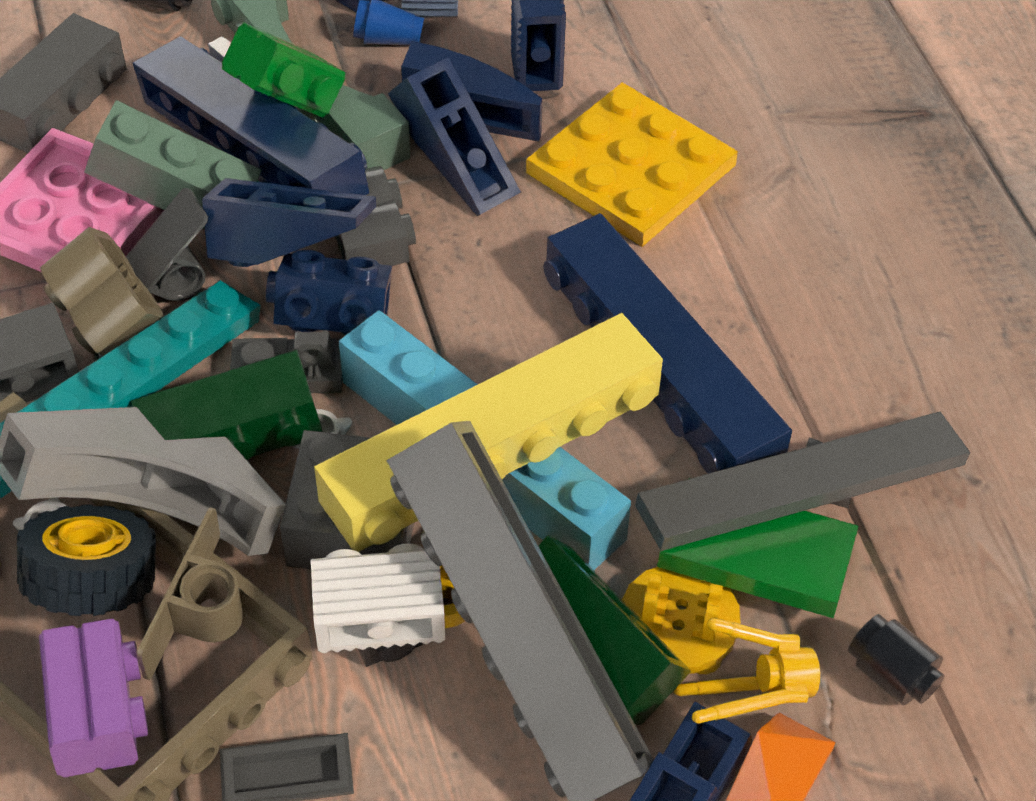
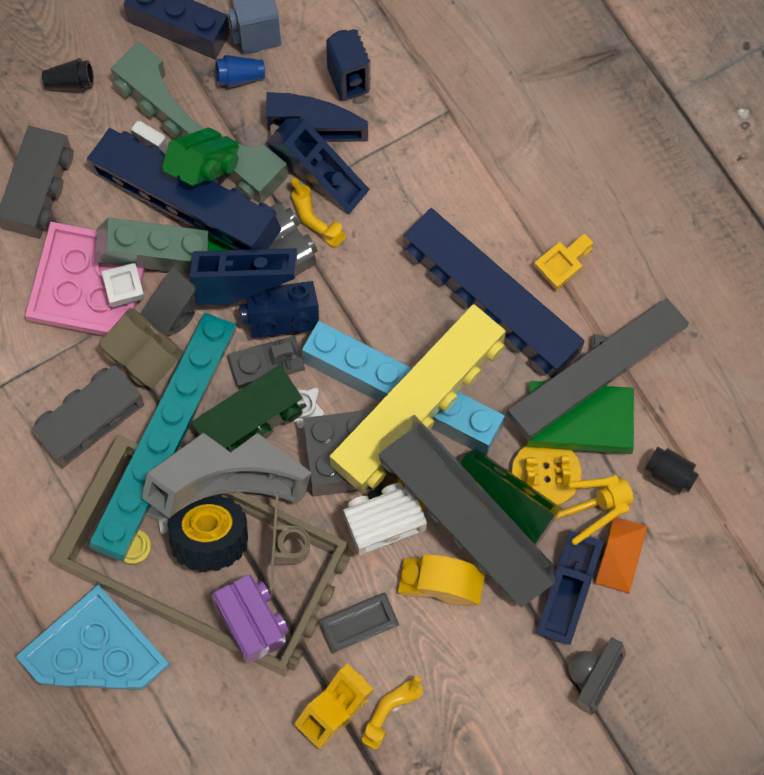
camera: 15 degrees left, 20 degrees up
(113, 209) = (123, 285): none -> white plate
(419, 187) = (303, 202): none -> yellow piece
(455, 729) = (442, 578): none -> yellow brick
(631, 163) = (434, 146): yellow plate -> none
(785, 335) = (562, 263): none -> yellow plate

